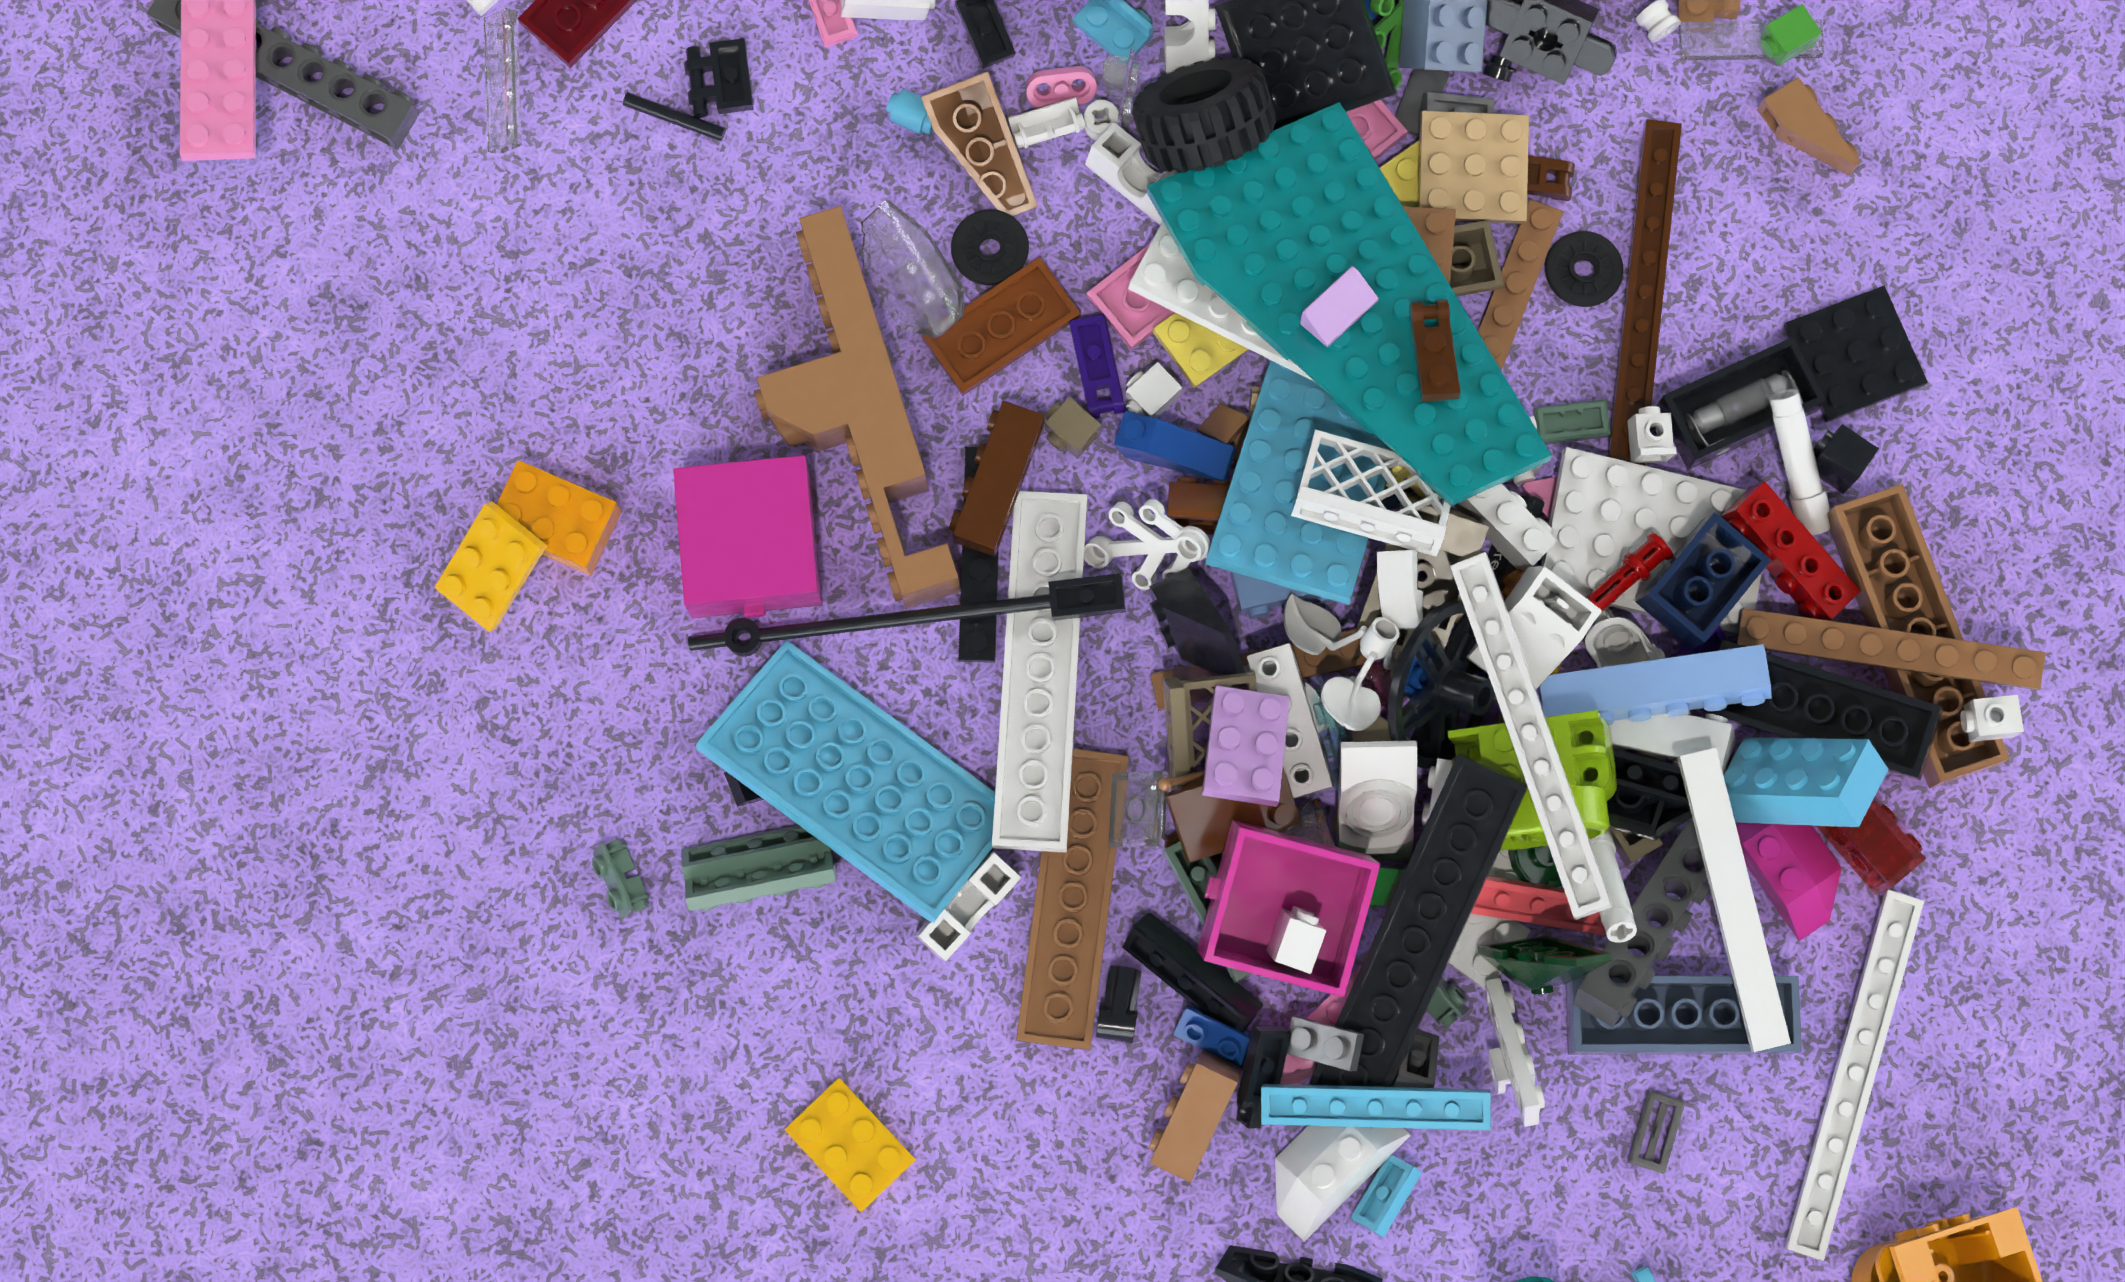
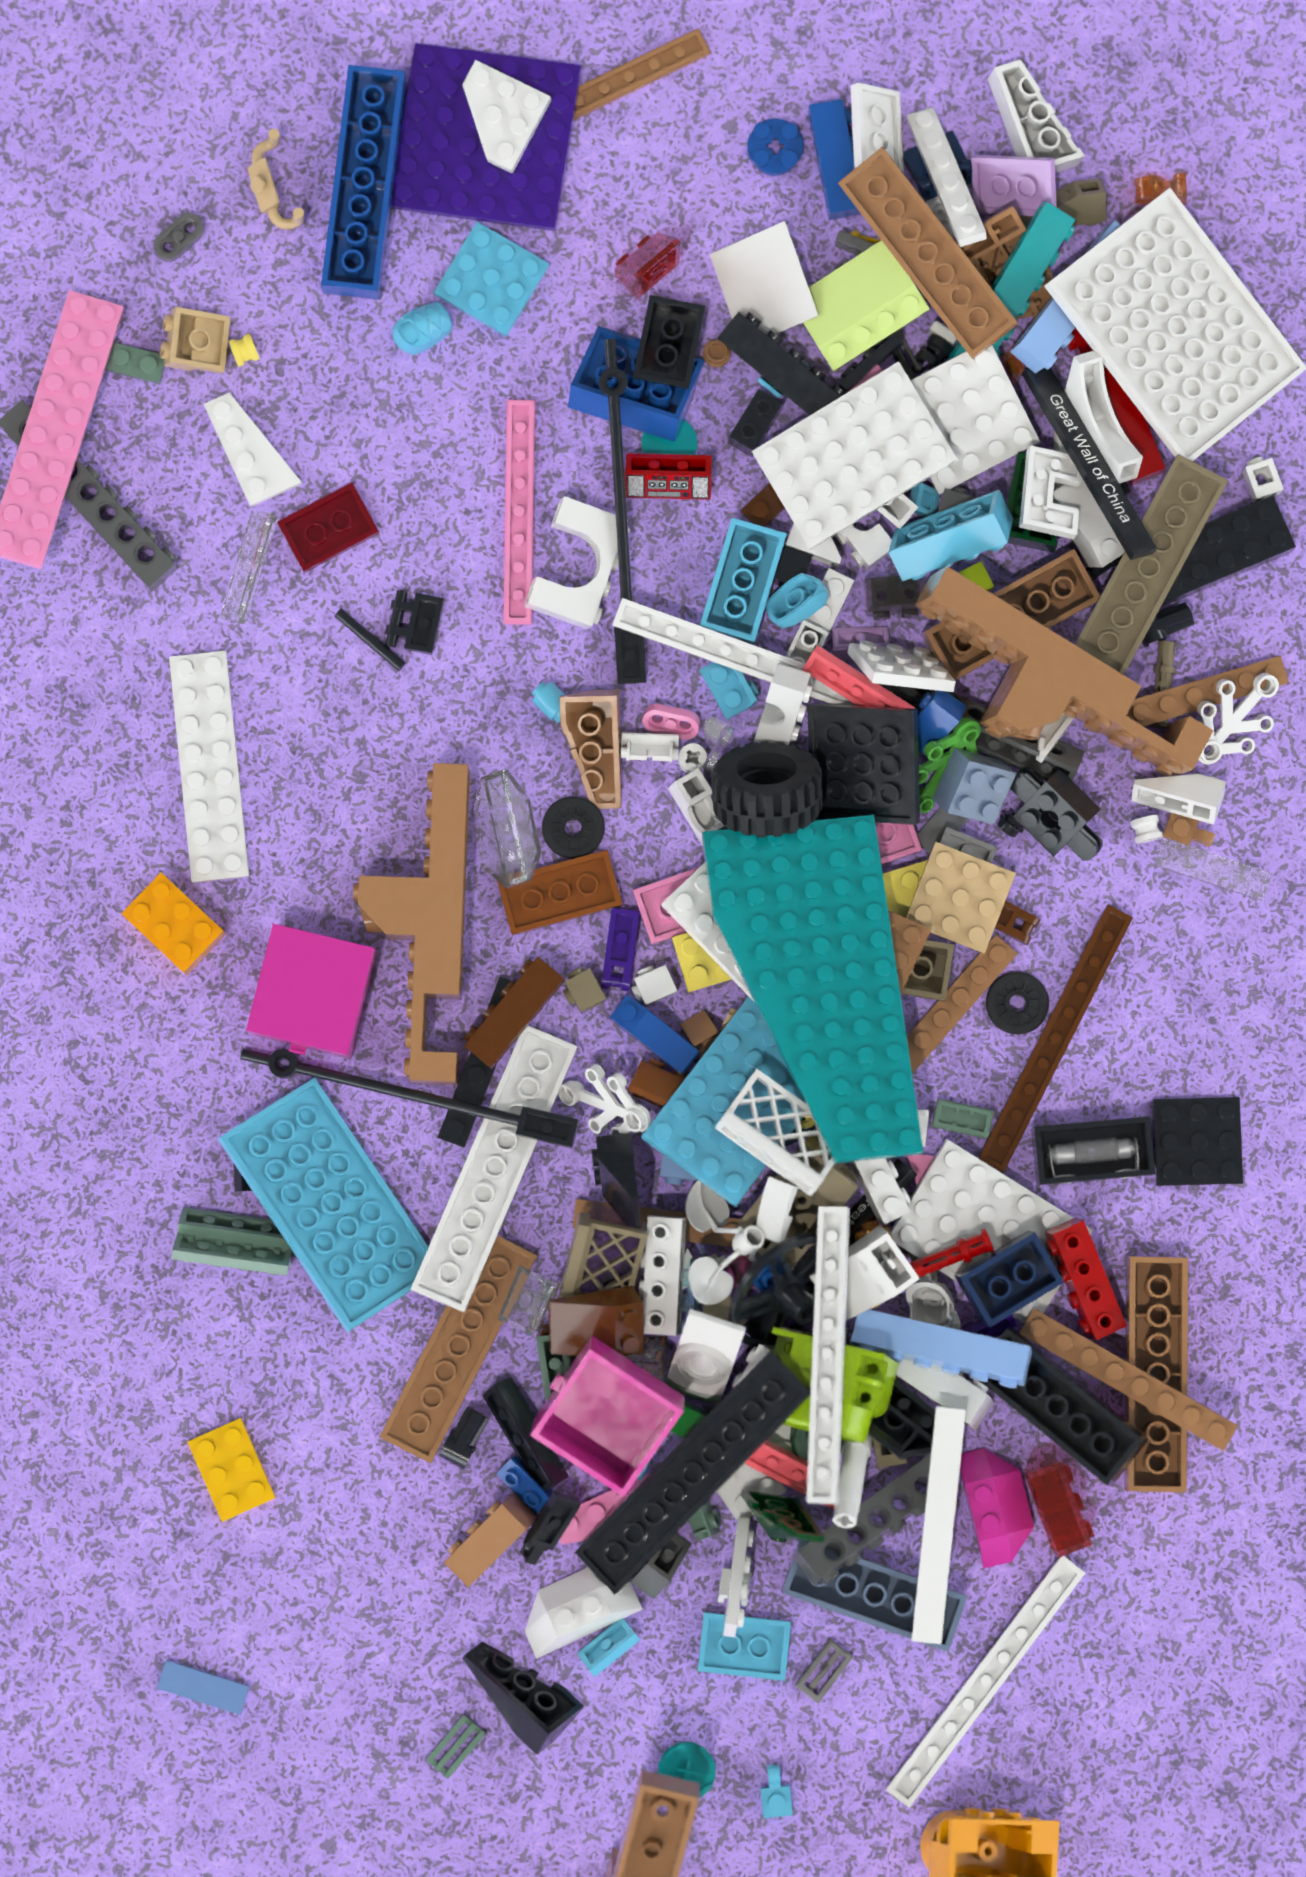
camera: 15 degrees right, 5 degrees up
(490, 566) = (113, 945): yellow plate -> none
(534, 325) = (209, 766): none -> white plate
(621, 892) = (128, 1202): sand green hinge -> none
(982, 892) = (392, 1319): white arch -> none
(1166, 783) = (551, 1292): medium nougat hinge -> none
(1246, 746) = (620, 1286): lavender plate -> none
(1296, 939) = (605, 1441): white brick -> none
(1325, 1043) = (602, 1522): flat silver plate -> none
(1338, 307) = (808, 982): lavender slope -> none
(1376, 1107) = (621, 1582): medium azure plate -> none
(1434, 351) = (865, 1042): reddish brown plate -> none
(1567, 1137) = (755, 1651): none -> medium azure plate
(1645, 446) = (1005, 1158): white brick -> none
(1790, 35) = (1239, 879): bright green brick -> none
(1801, 122) = (1224, 947): medium nougat slope -> none
(1803, 781) = (1022, 1456): medium azure brick -> none
(1807, 495) = (1116, 1237): white piece -> none
(1843, 457) = (1151, 1220): black brick -> none
(1992, 718) = (1182, 1458): white brick -> none

